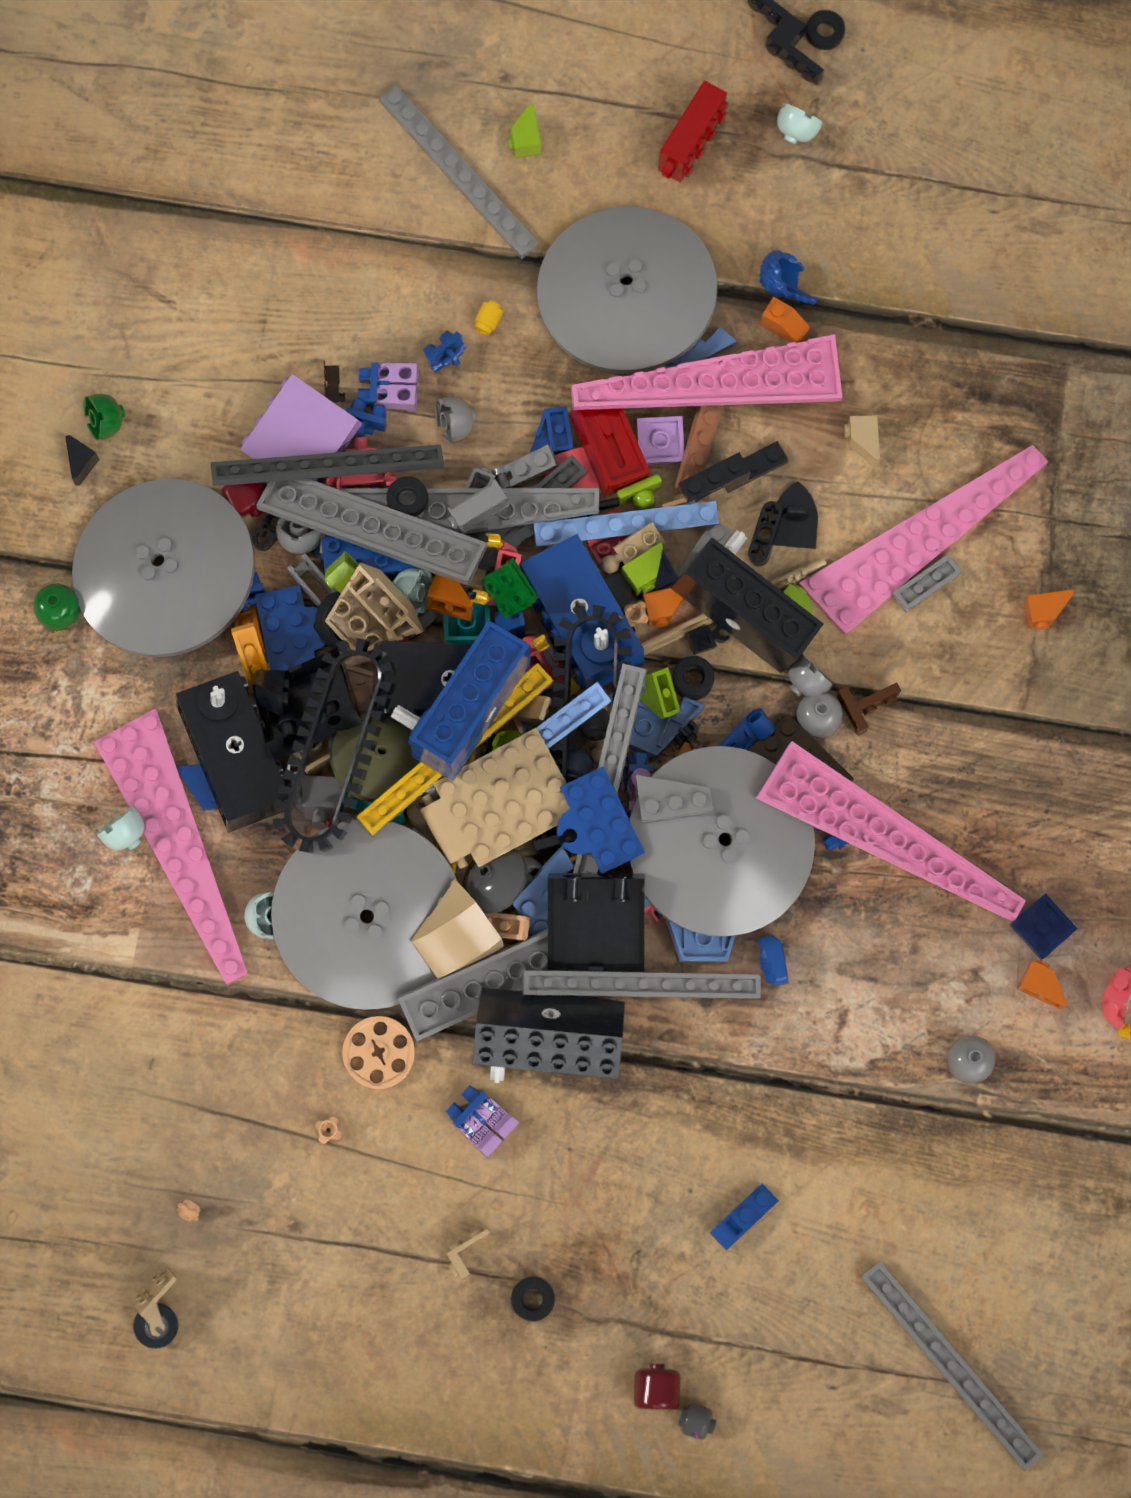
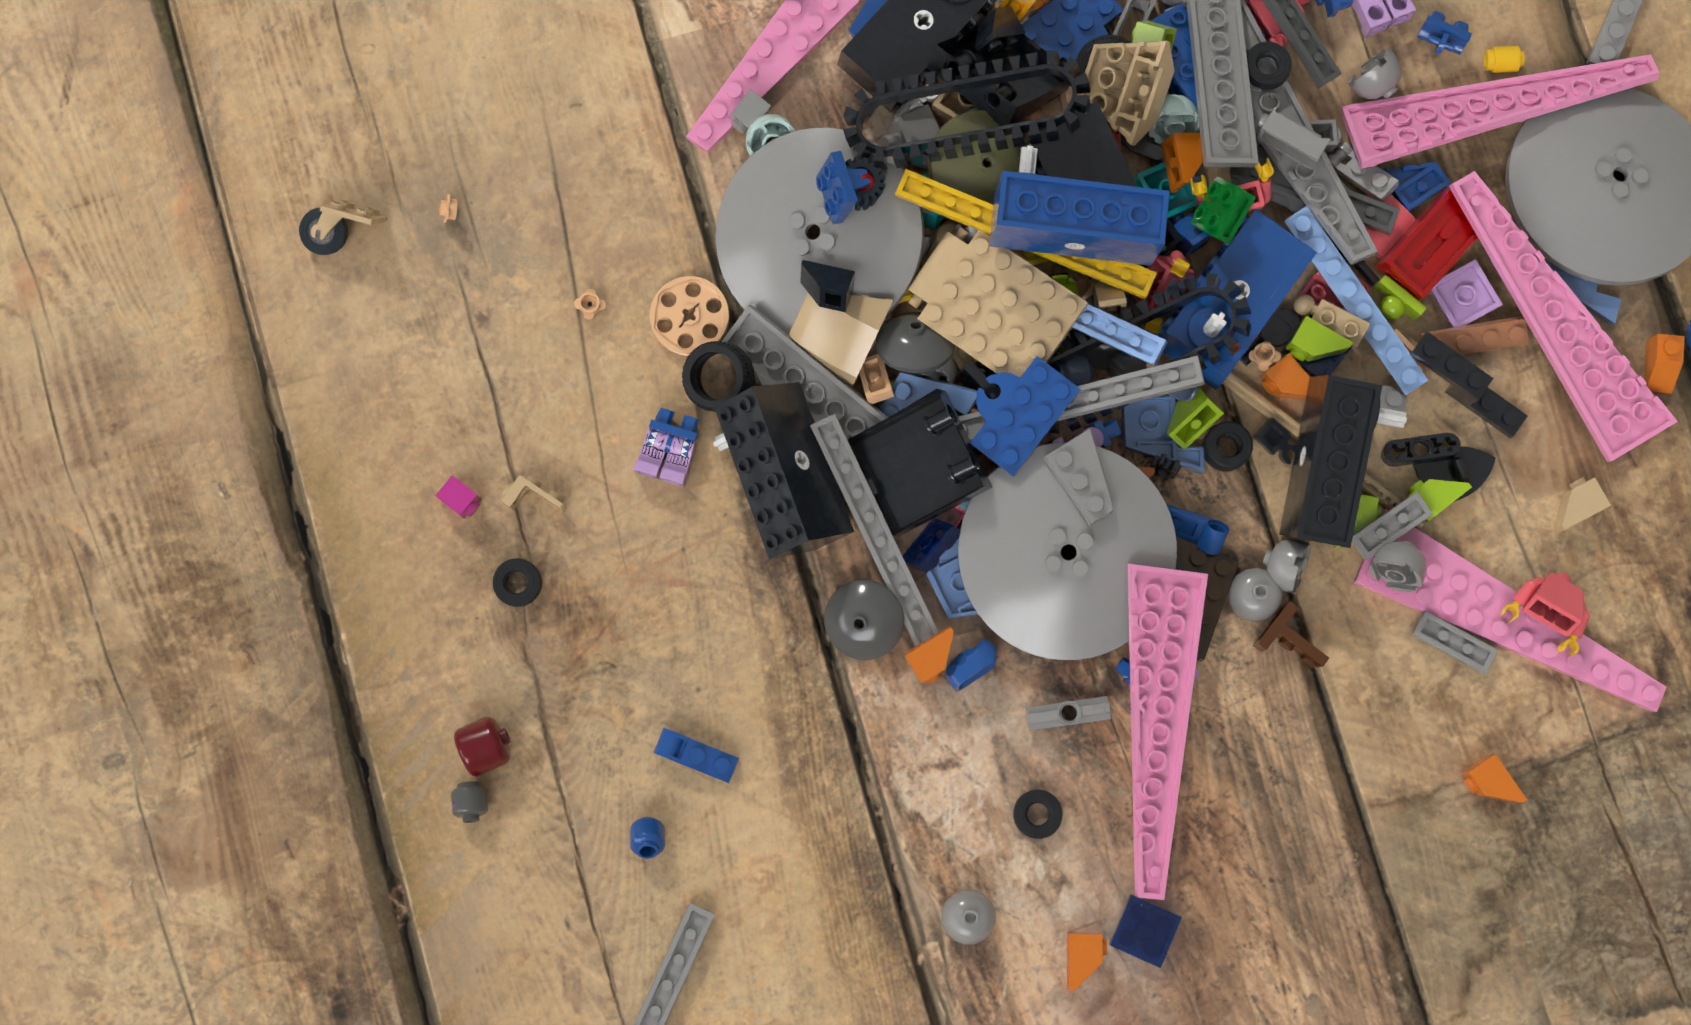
camera: 65 degrees right, 5 degrees up
(233, 922) = (748, 111): none -> light grey brick
(348, 868) = (848, 185): none -> blue plate
(418, 925) = (828, 285): none -> black slope
(440, 1314) = (459, 497): none -> dark pink brick
(443, 1076) = (693, 366): none -> black tyre
(509, 399) = (1429, 119): none -> bright pink wing
(664, 946) = (930, 545): none -> clear blue plate
(690, 1015) = (878, 610): none -> dark grey dish
(752, 987) = (931, 656): none -> orange slope
(793, 1287) = (647, 837): none -> blue head
(808, 541) = (1439, 493): none -> lime slope
(817, 584) = (1391, 525): none -> light grey plate
(850, 889) = (1085, 712): none -> light grey piece
(851, 593) = (1399, 565): none -> light grey cylinder
(904, 976) = (1054, 814): none -> black tyre
(934, 493) = (1554, 603): none -> coral torso

